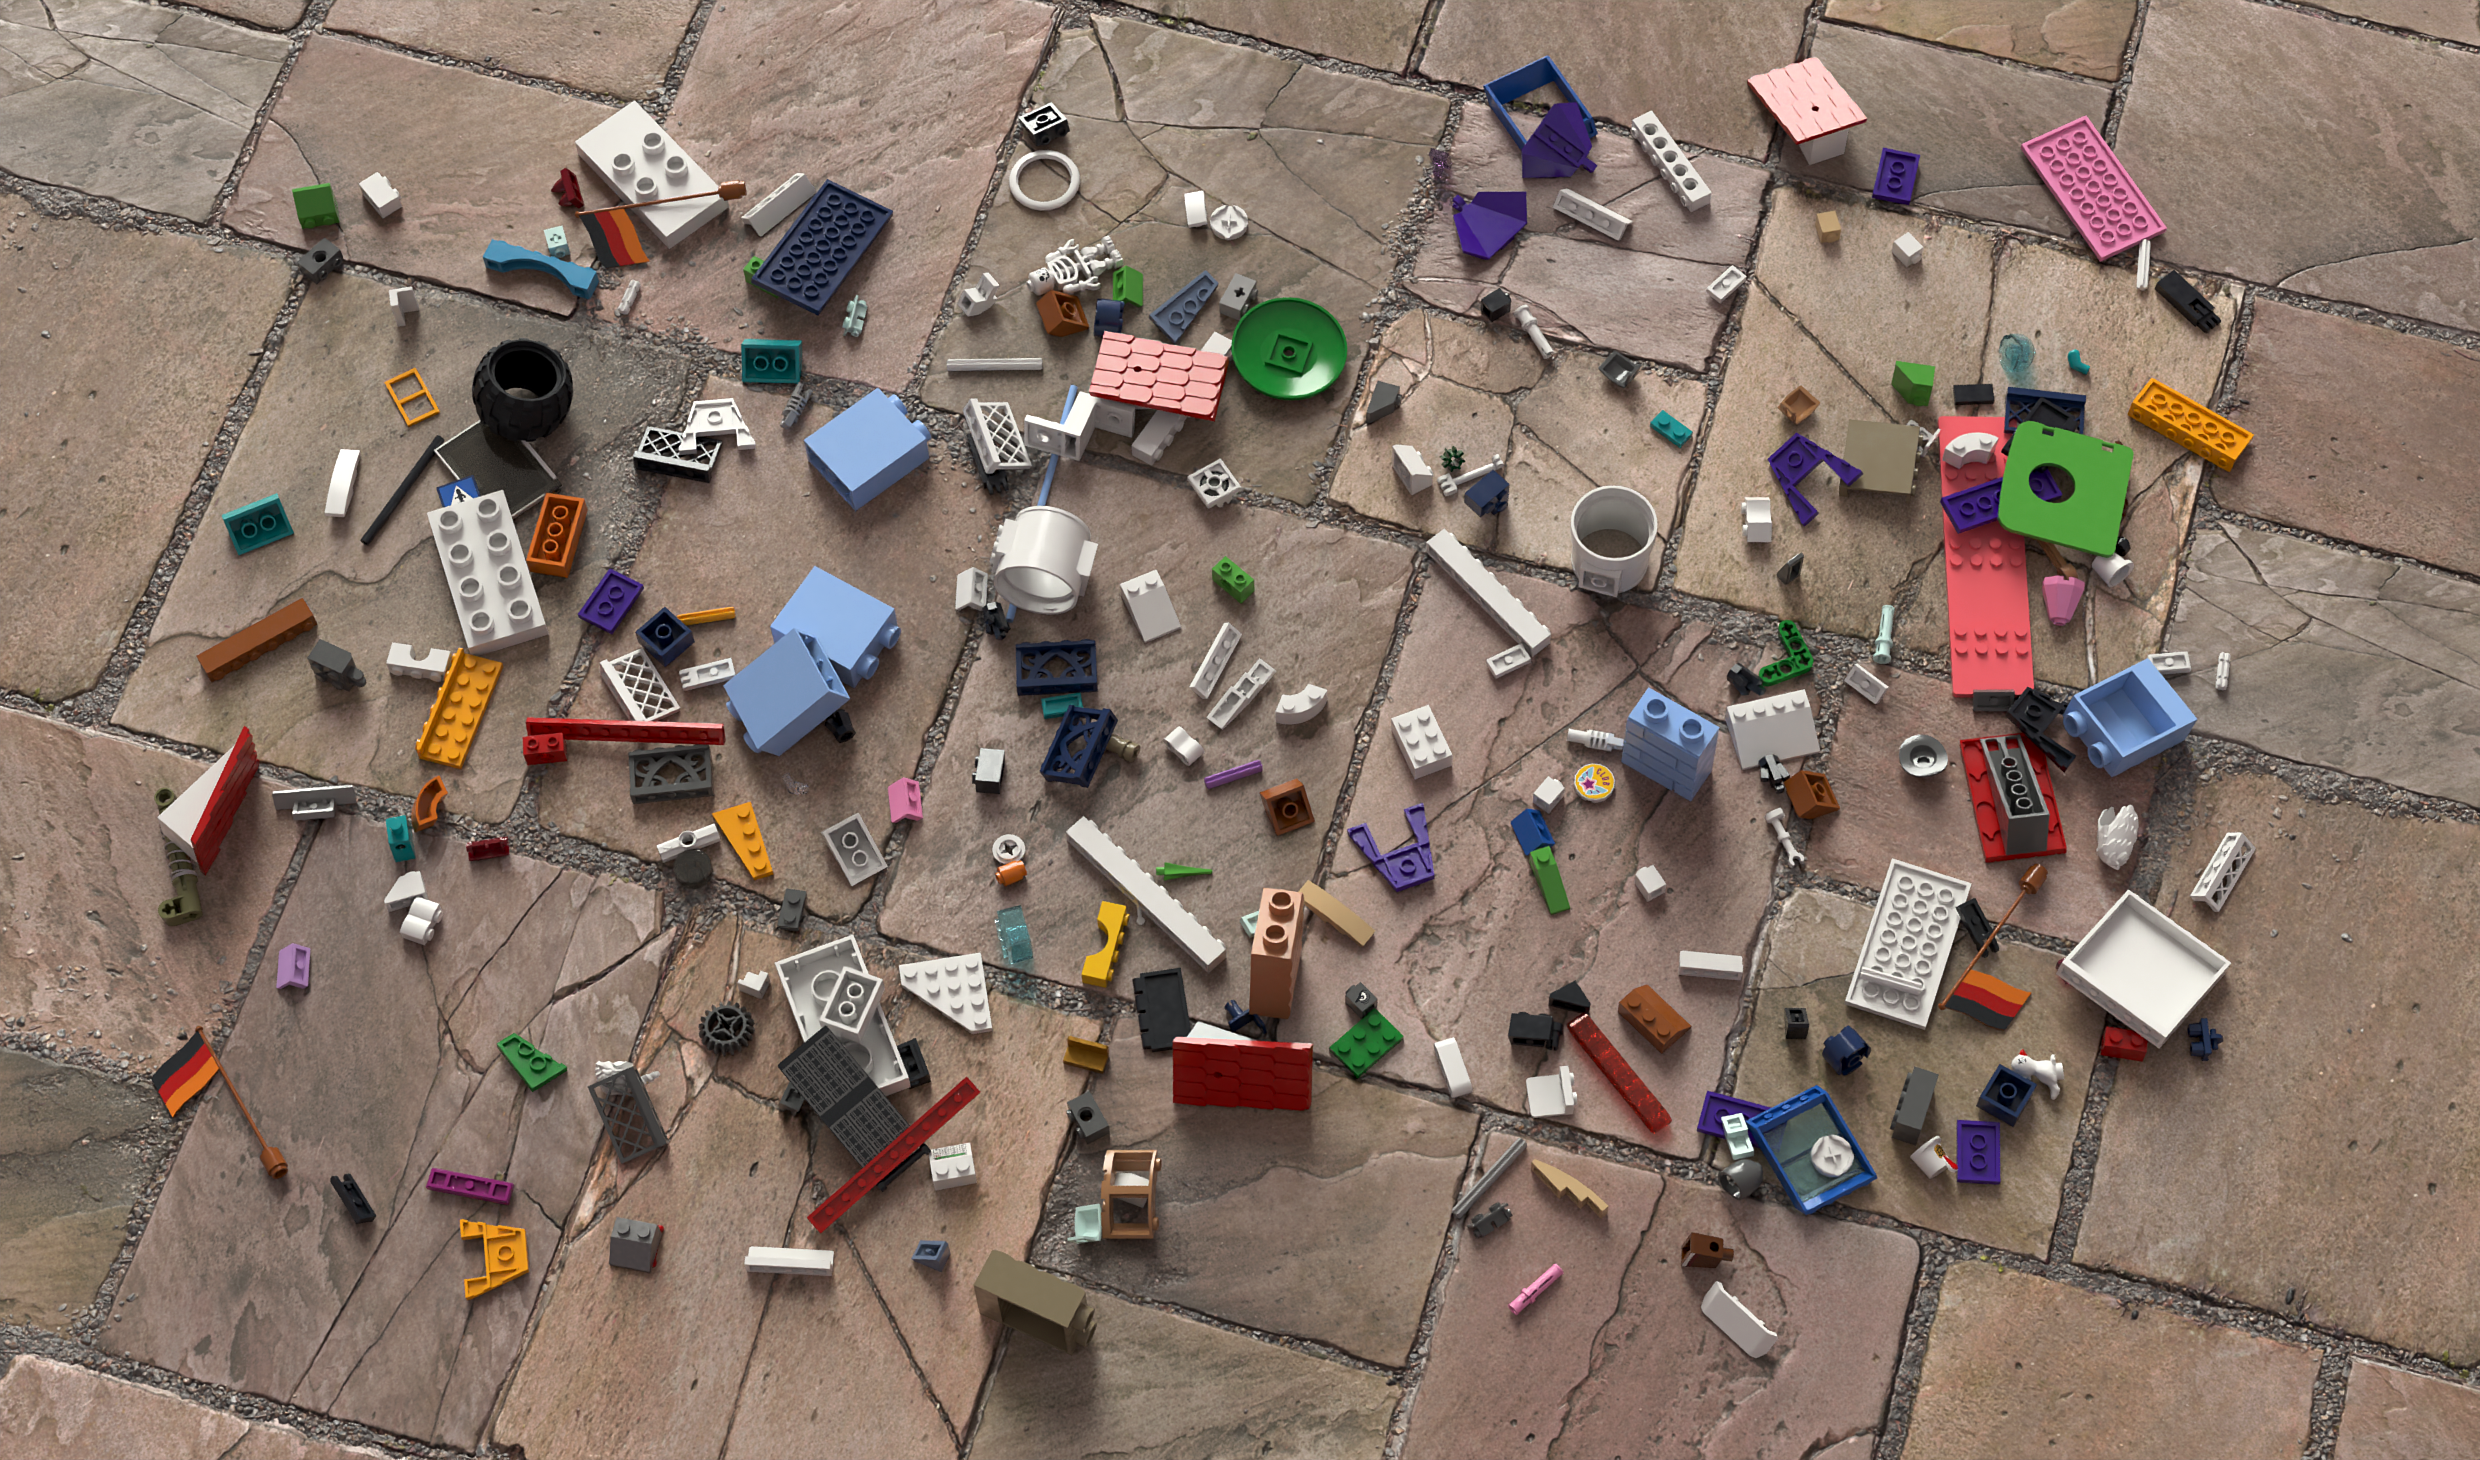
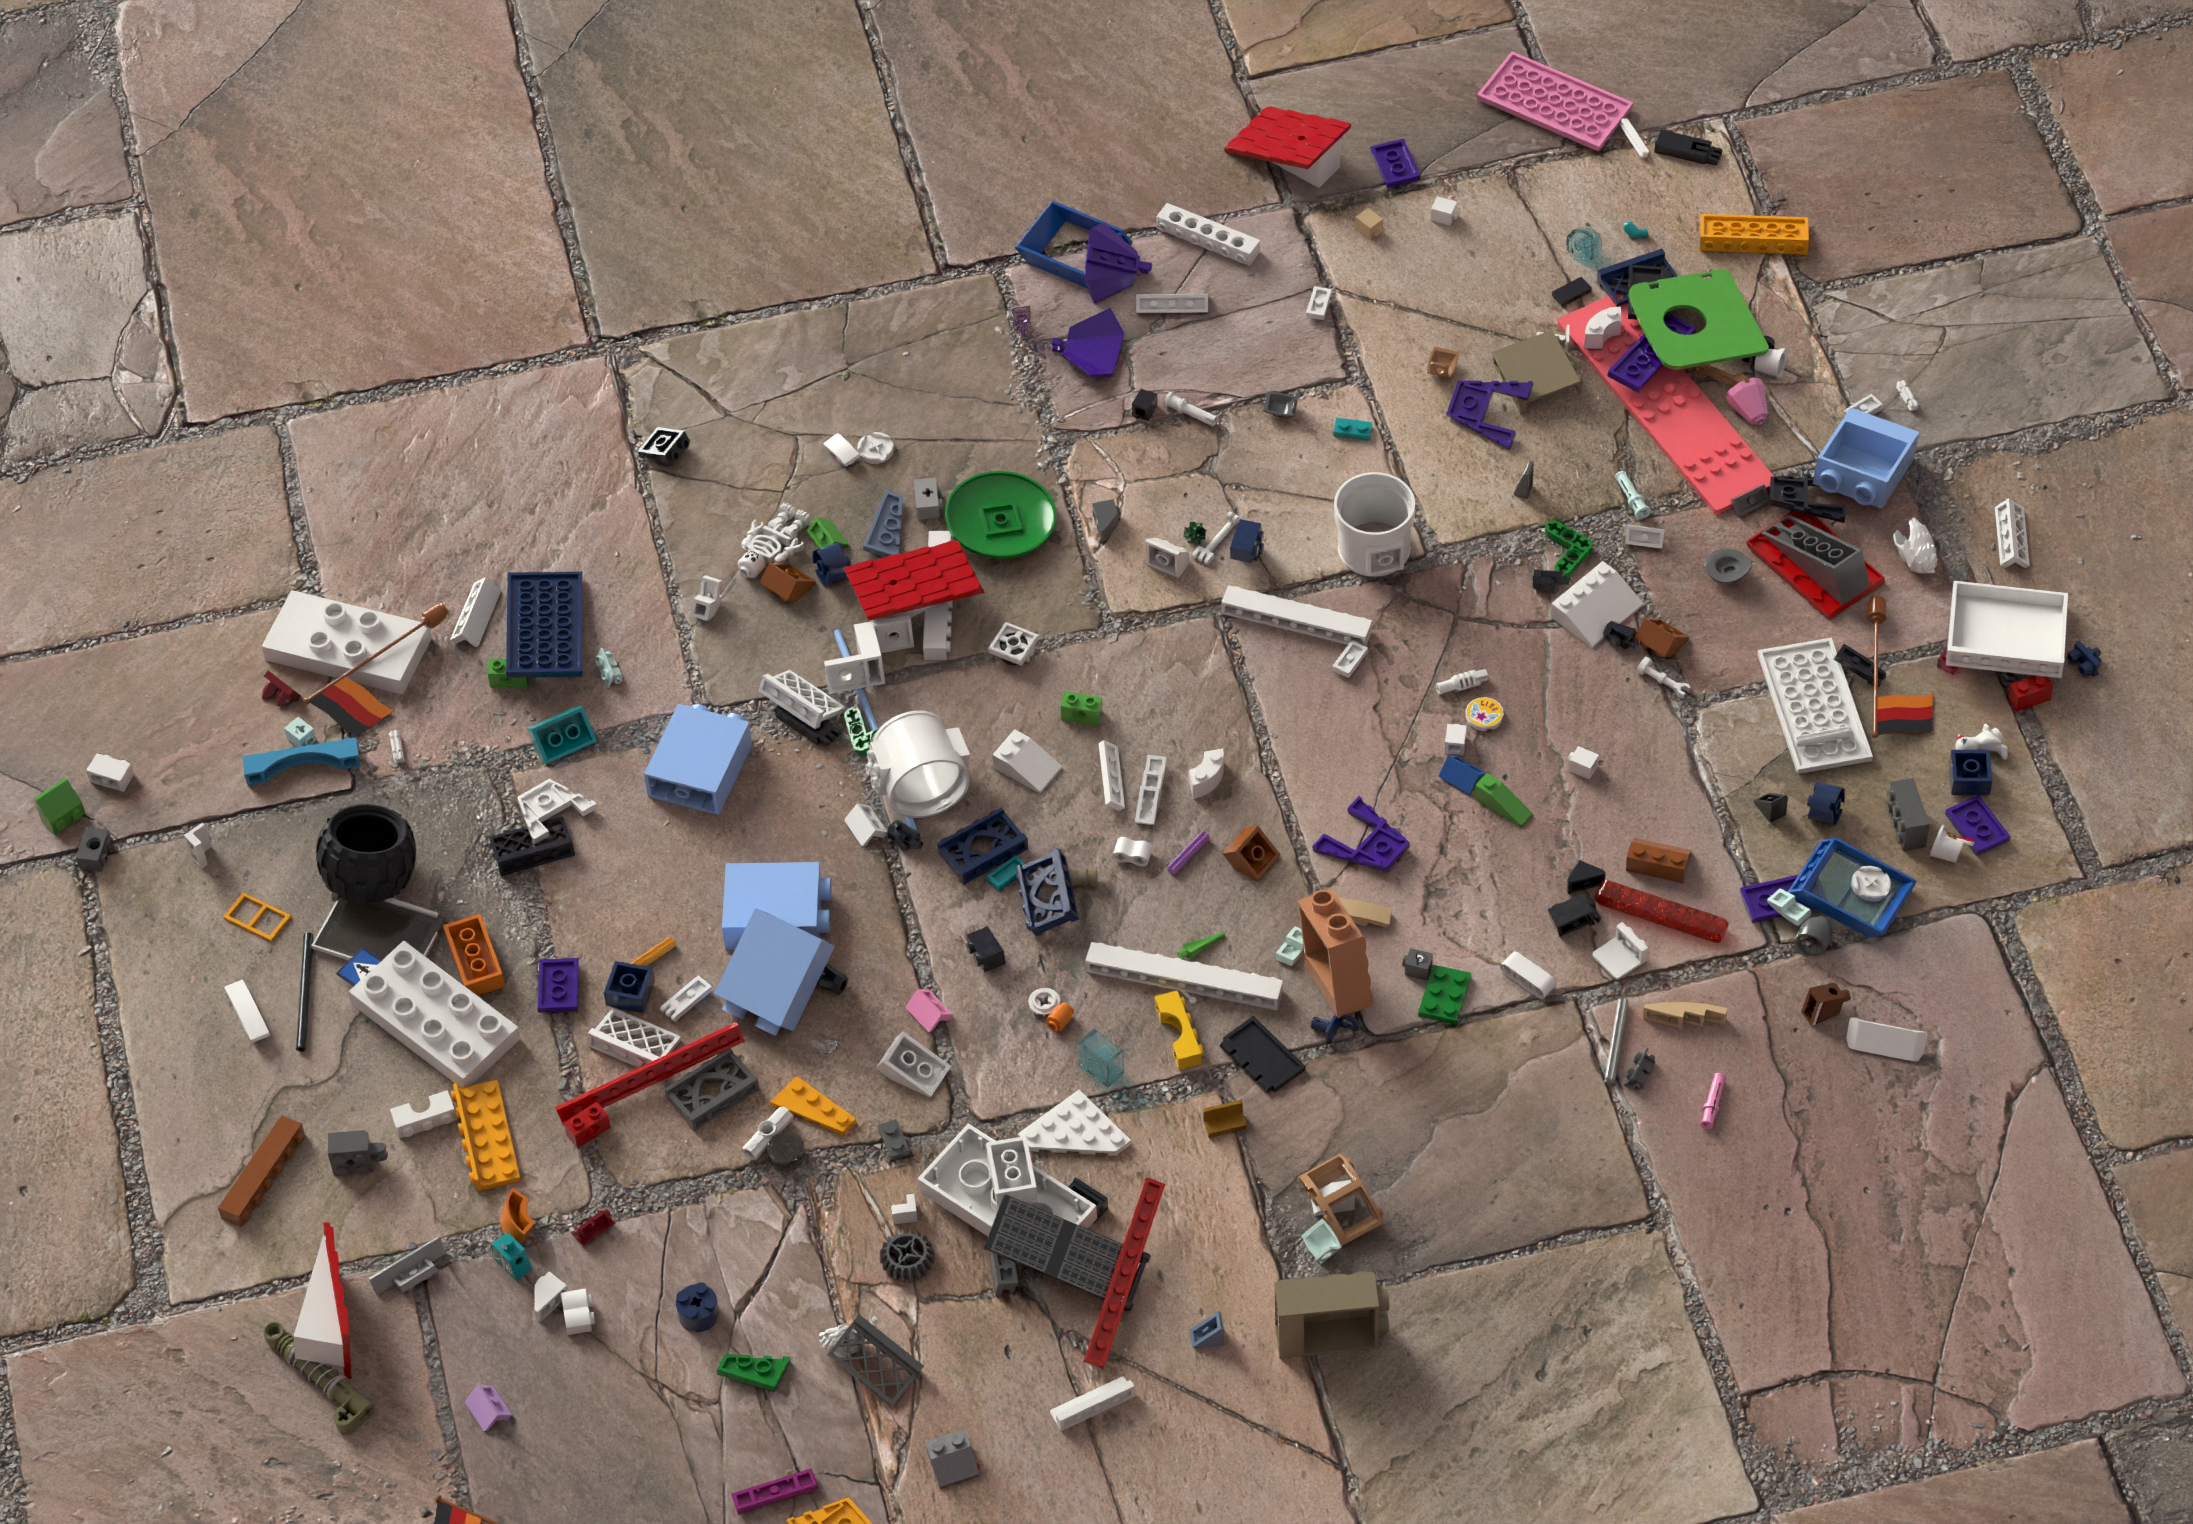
camera: 30 degrees left, 10 degrees down
(257, 524) = (192, 1080): teal slope -> none
(520, 975) = (697, 1307): none -> dark blue brick
(795, 406) = (608, 759): light grey hinge -> none
(952, 1166) = (1177, 1259): white slope -> none
(994, 364) = (756, 646): white axle -> none
(1026, 486) = (863, 737): none -> beam
(1044, 154) = (693, 466): white wedge -> none
(1086, 1106) = (1256, 1155): dark grey brick -> none
(1239, 1071) = (1368, 1058): red piece -> none
(1421, 742) = (1325, 751): white brick -> none
(1669, 744) = (1532, 646): light blue brick -> none
(1710, 965) = (1674, 799): white panel -> none
(1757, 519) = (1472, 459): white brick -> none
(1913, 382) = (1522, 301): bright green slope -> none

